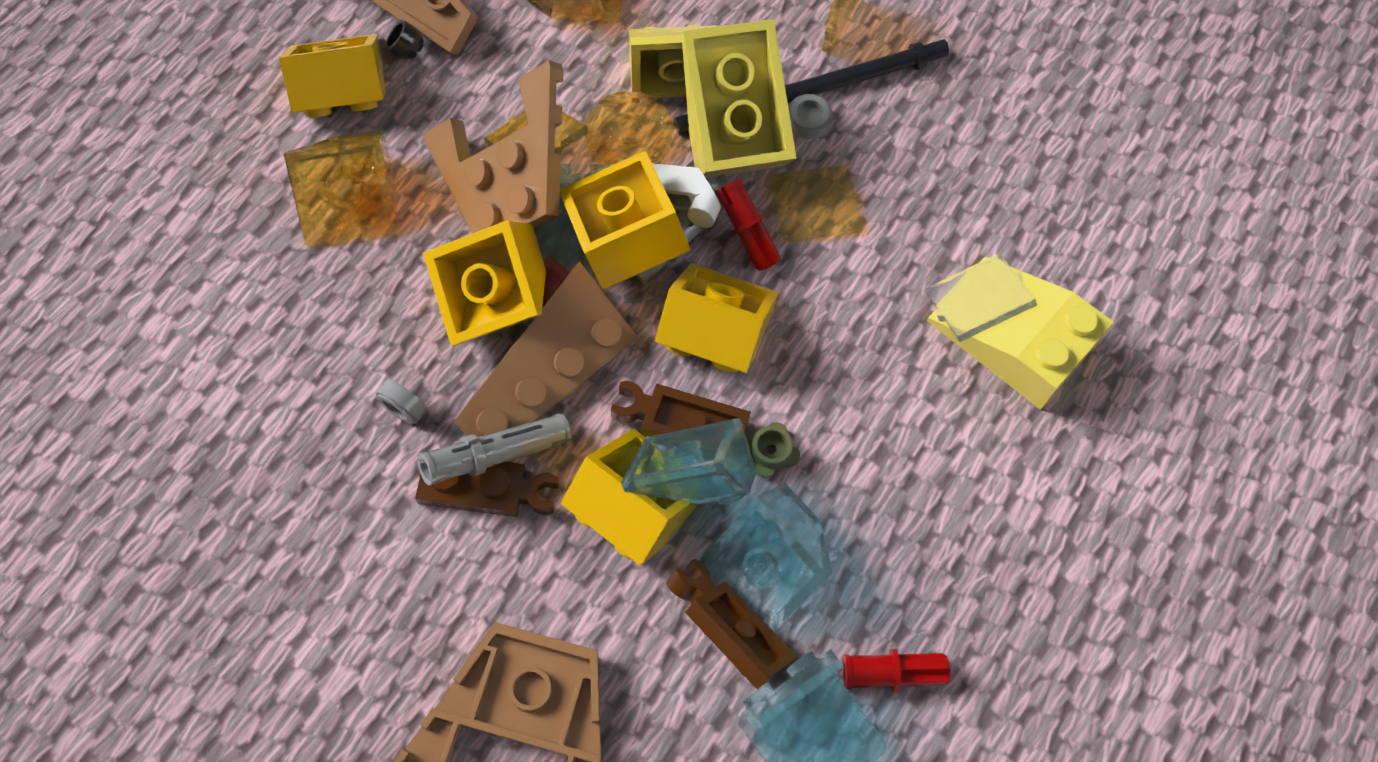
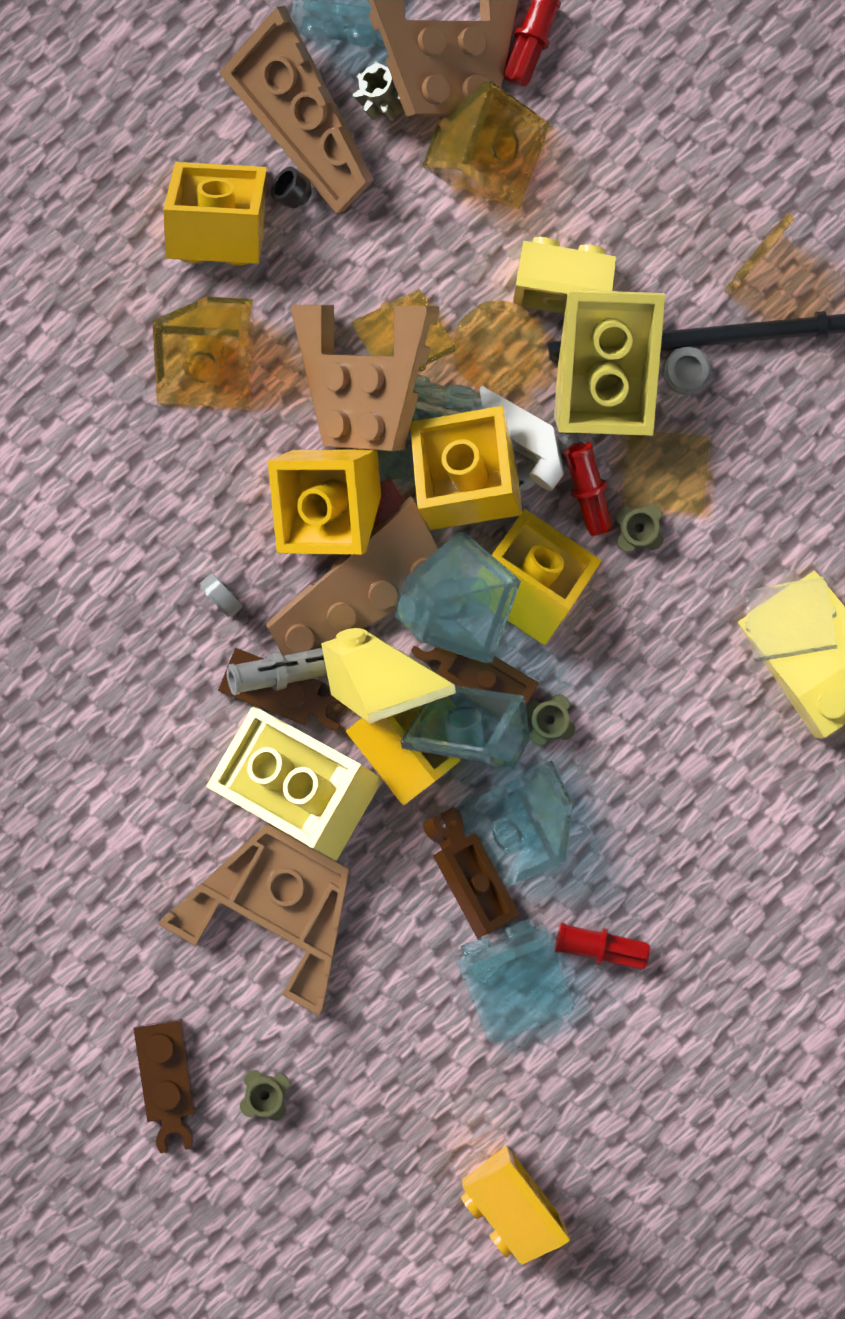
camera: 20 degrees right, 20 degrees up
(519, 572) = (295, 782): none -> light yellow slope
(580, 426) = (378, 677): none -> light yellow slope
(649, 339) = (459, 599): none -> clear light blue slope
(810, 241) = (646, 516): none -> olive plate

